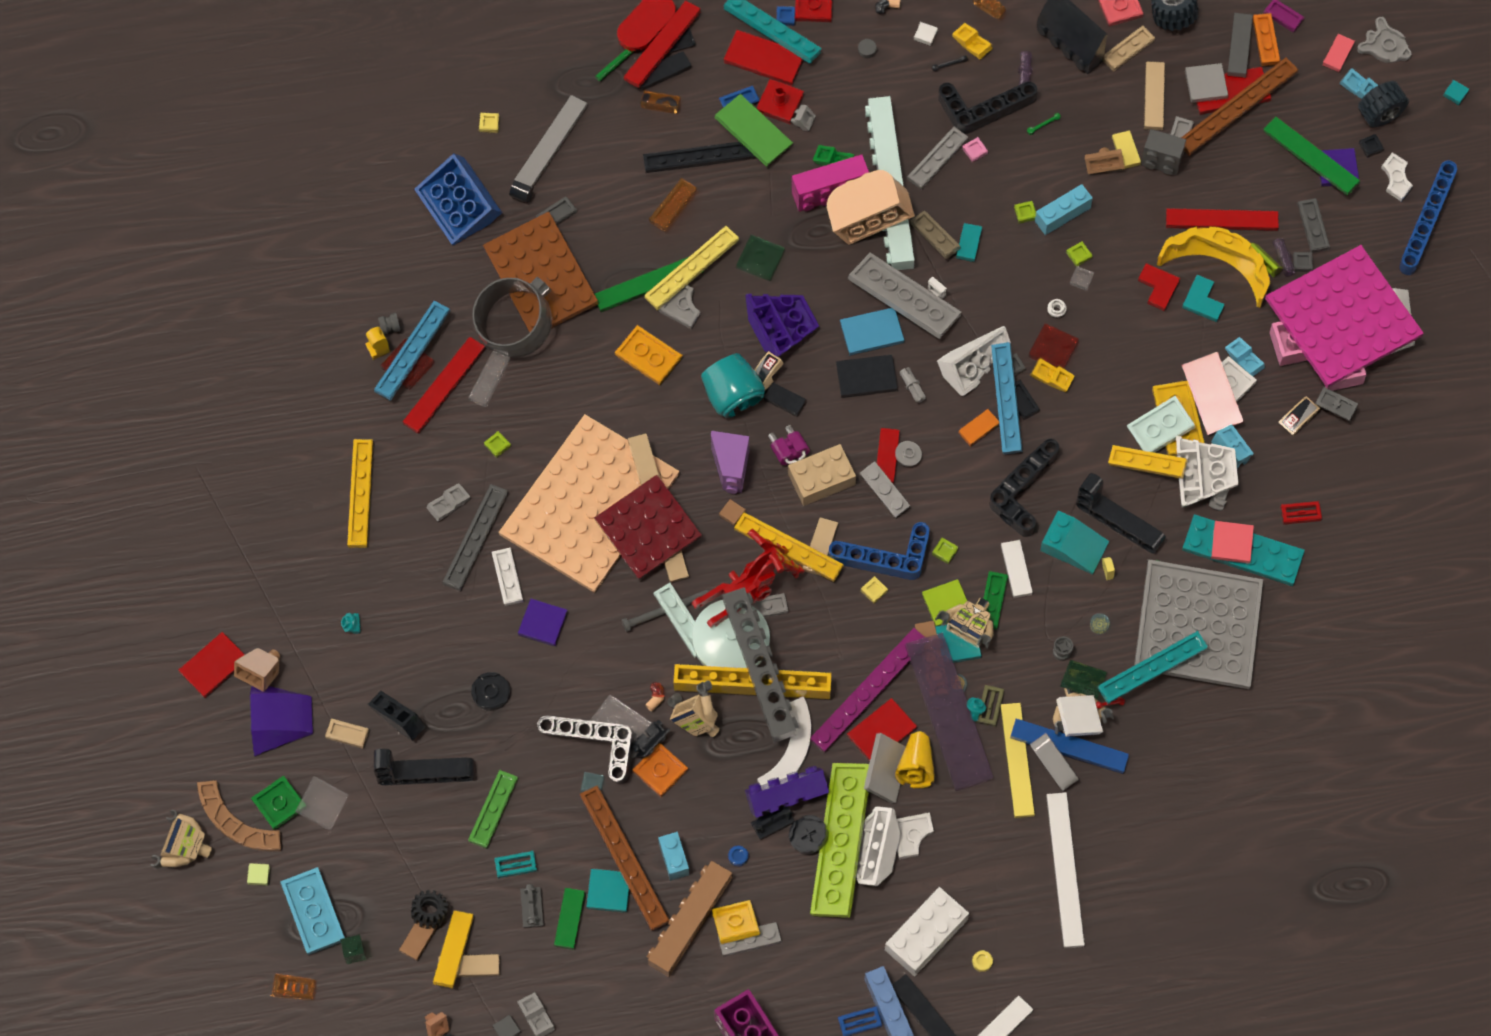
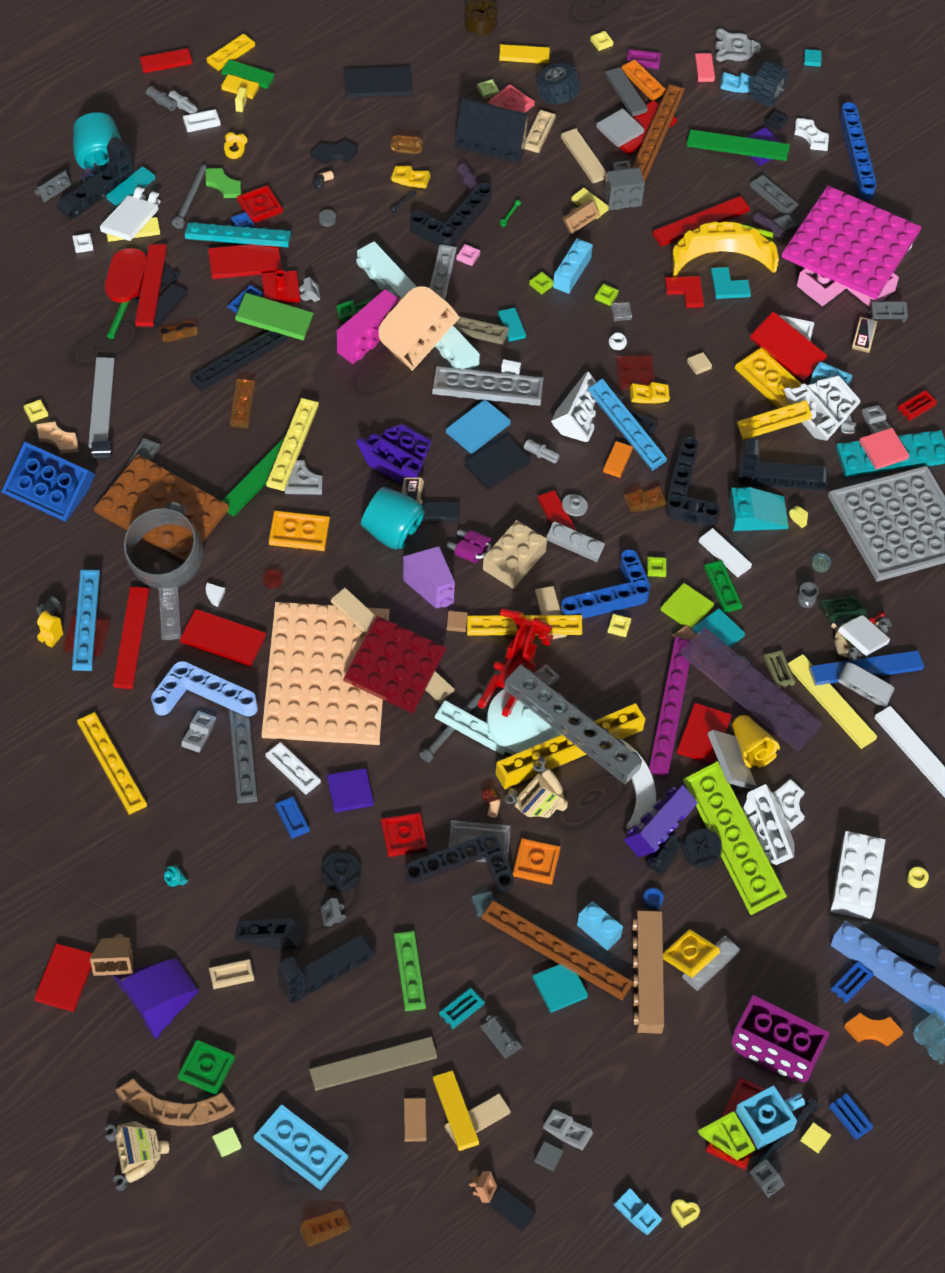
camera: 35 degrees left, 10 degrees down
(321, 803) = (248, 1046): clear tile -> none
(353, 949) = (362, 1160): clear green brick -> none
(414, 872) = (373, 1063): none -> dark tan tile
(429, 918) = (410, 1095): black tyre -> none
(457, 724) = (331, 912): none -> dark grey tile
(475, 464) = (186, 677): none -> light blue beam
(479, 621) = (292, 817): none -> blue tile
(496, 165) = (51, 434): none -> light nougat tile
(497, 444) = (212, 663): lime tile -> none
(521, 424) = (223, 637): none -> red tile
(538, 379) = (214, 593): none -> white tile
(563, 686) = (404, 834): none -> red tile
(569, 918) = (541, 1029): green tile -> none
(597, 390) = (272, 579): none -> clear red tile
(645, 745) = (512, 845): black hinge -> none
(760, 257) = (345, 412): clear green tile -> none
(925, 33) = (368, 187): white tile -> none
(969, 622) = (722, 609): torso -> none
(976, 707) = (771, 673): teal plate -> none
(977, 481) = (645, 500): none -> clear orange slope
(1120, 368) = (699, 363): none -> tan tile
(1152, 667) = (894, 570): teal plate -> none
(1161, 425) = (764, 389): light aqua tile -> none
(1243, 356) = (787, 308): medium azure slope -> none
(1250, 509) = (875, 419): none -> light grey slope

